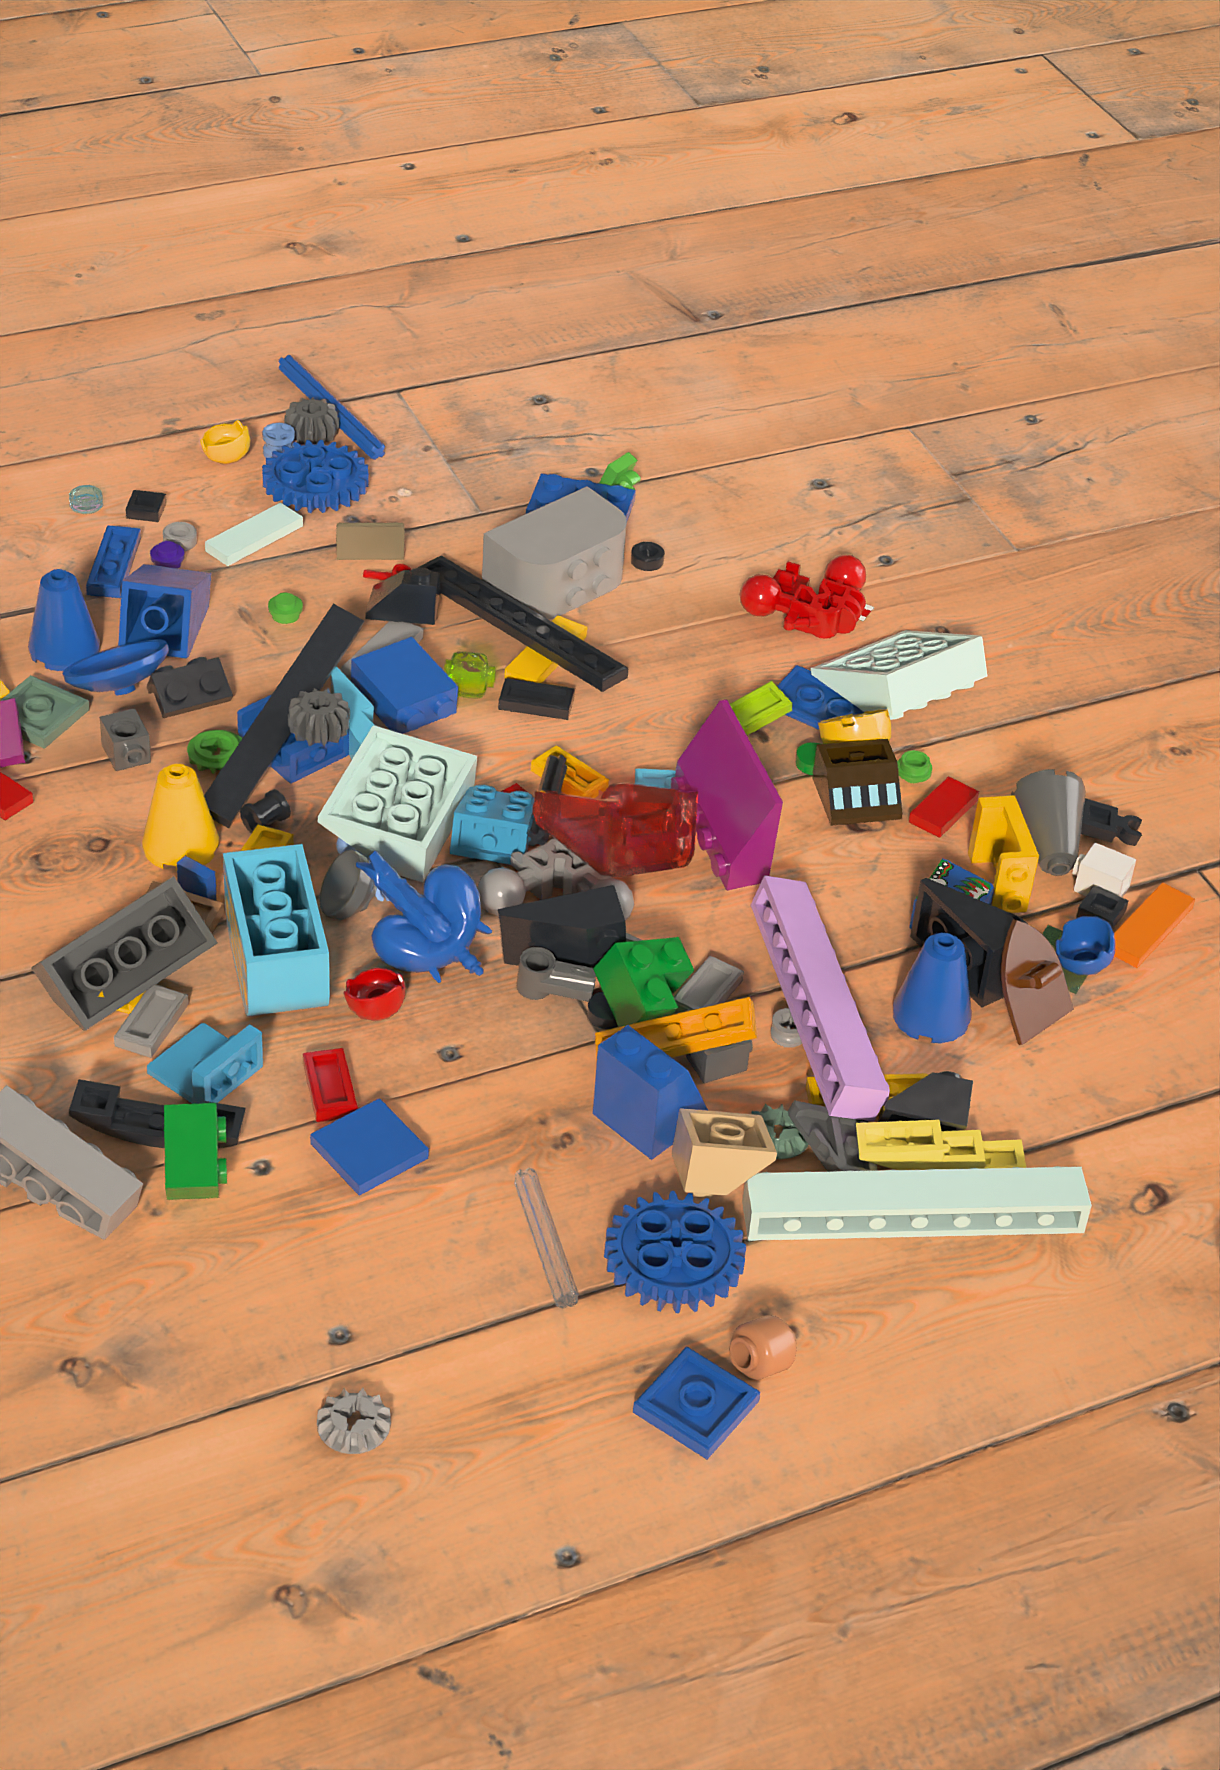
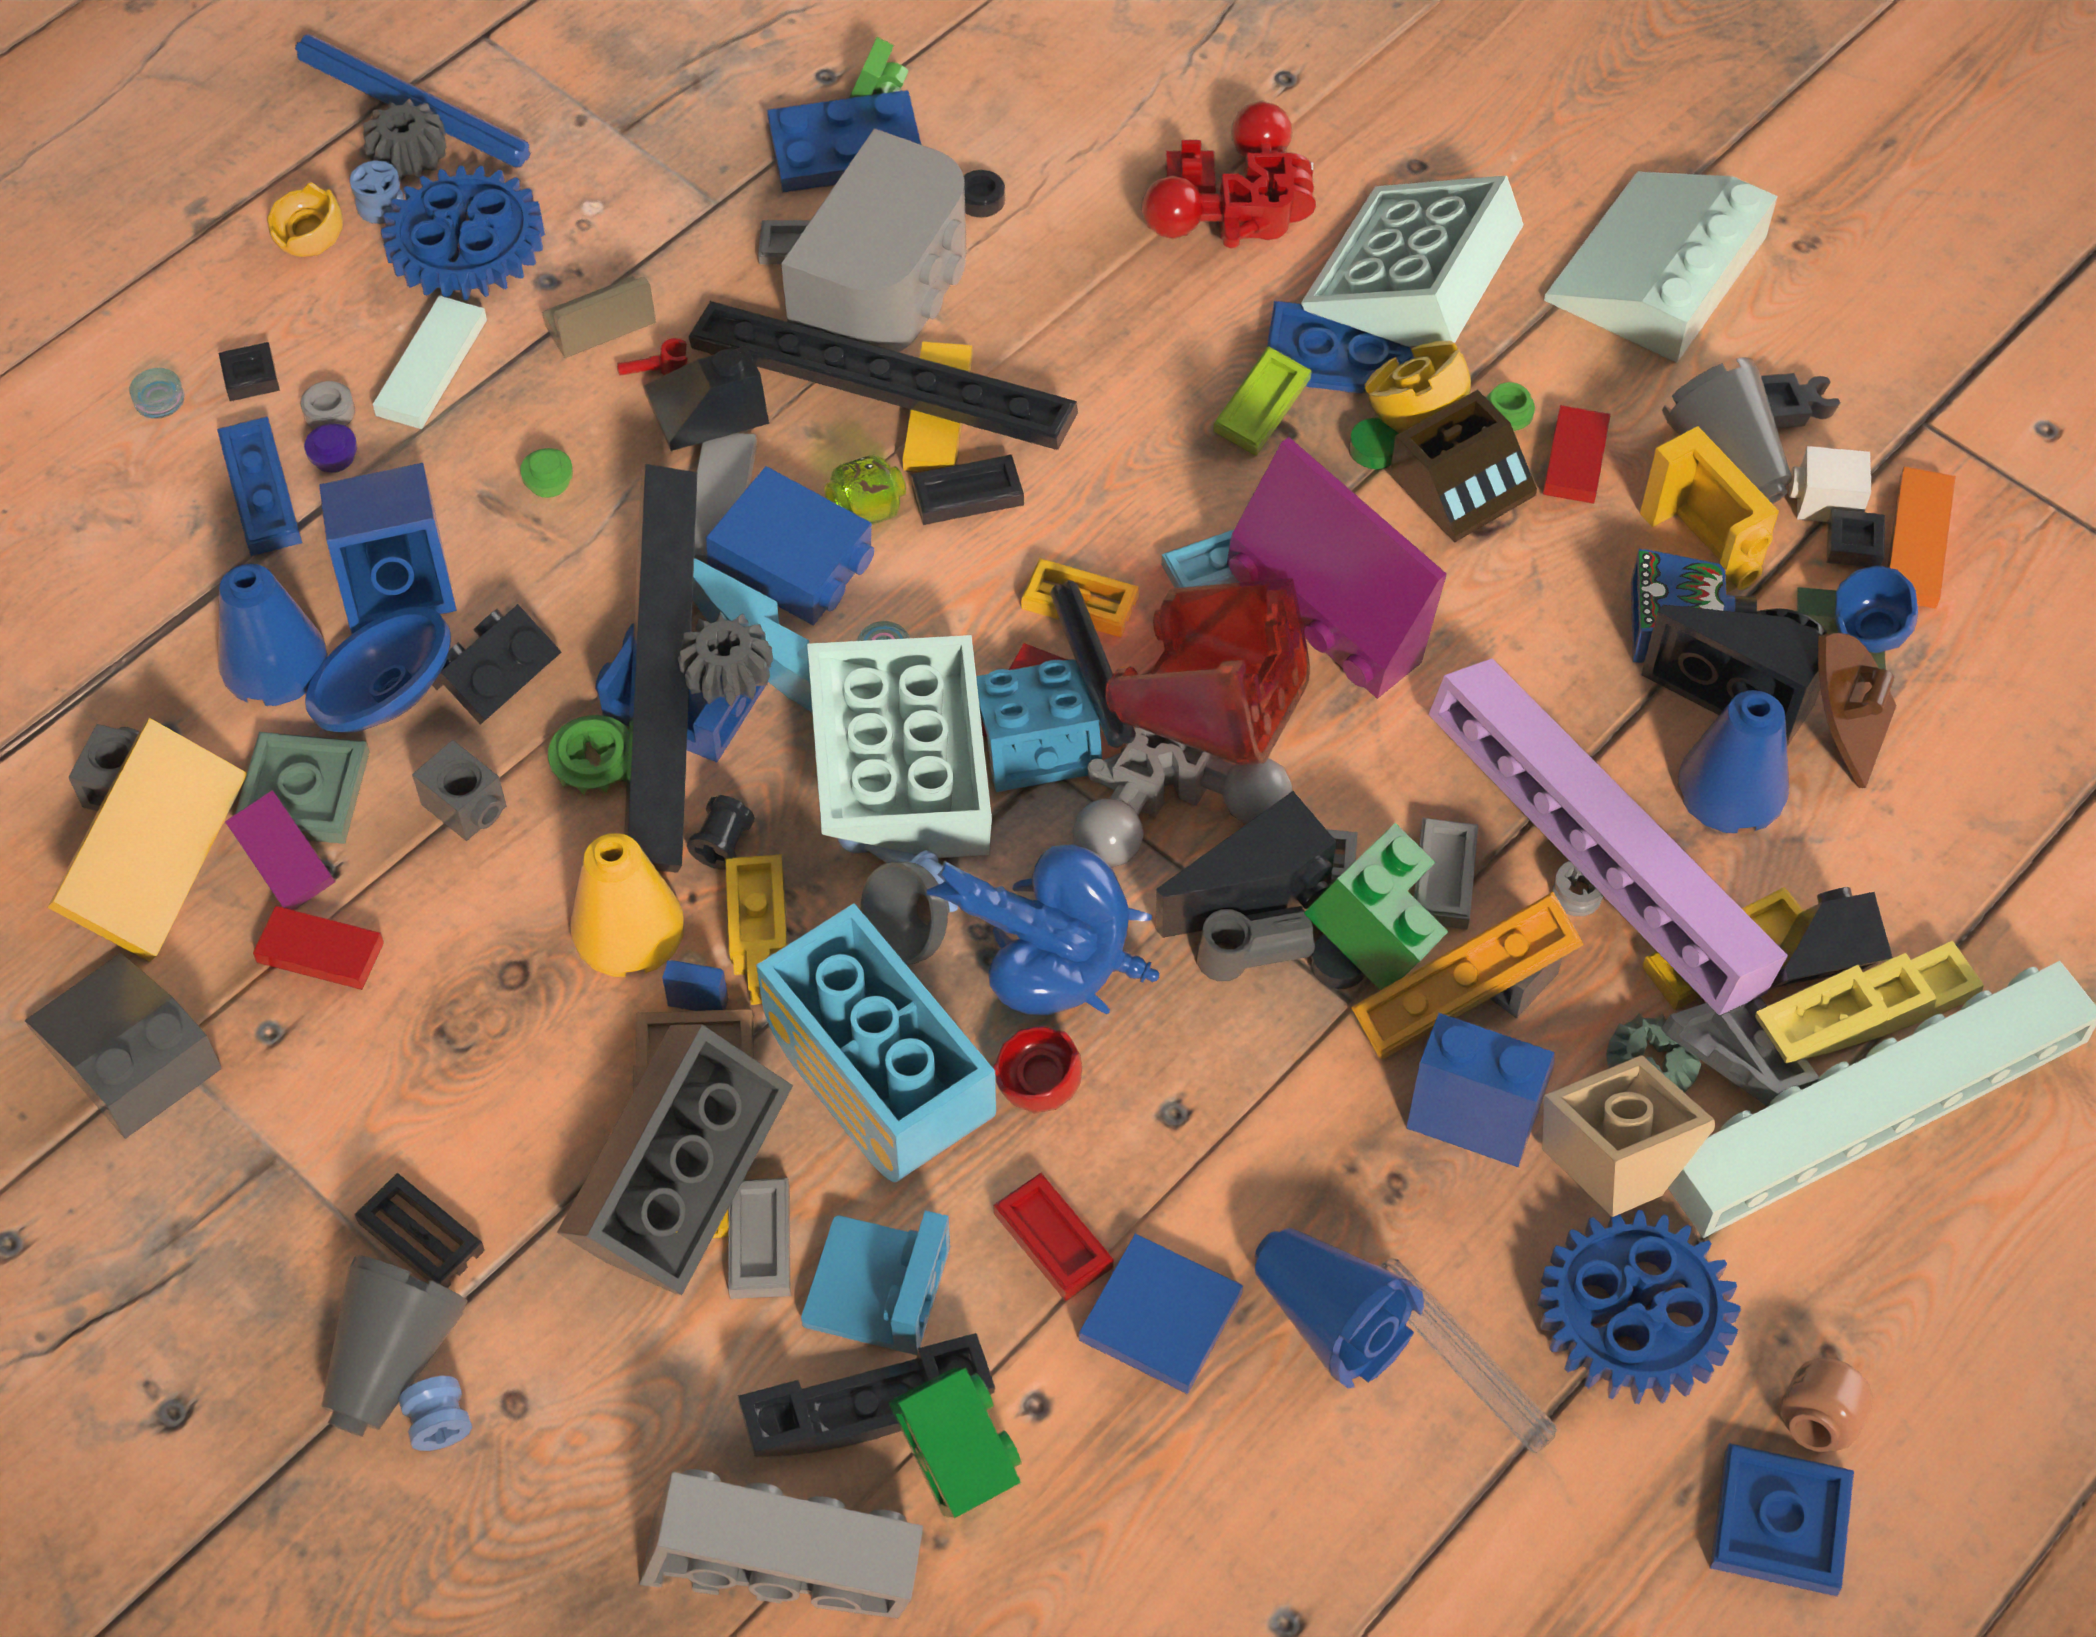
camera: 20 degrees left, 15 degrees up
(481, 1178) = (1338, 1303): none -> blue cone
(1076, 724) = (1665, 257): none -> light aqua slope

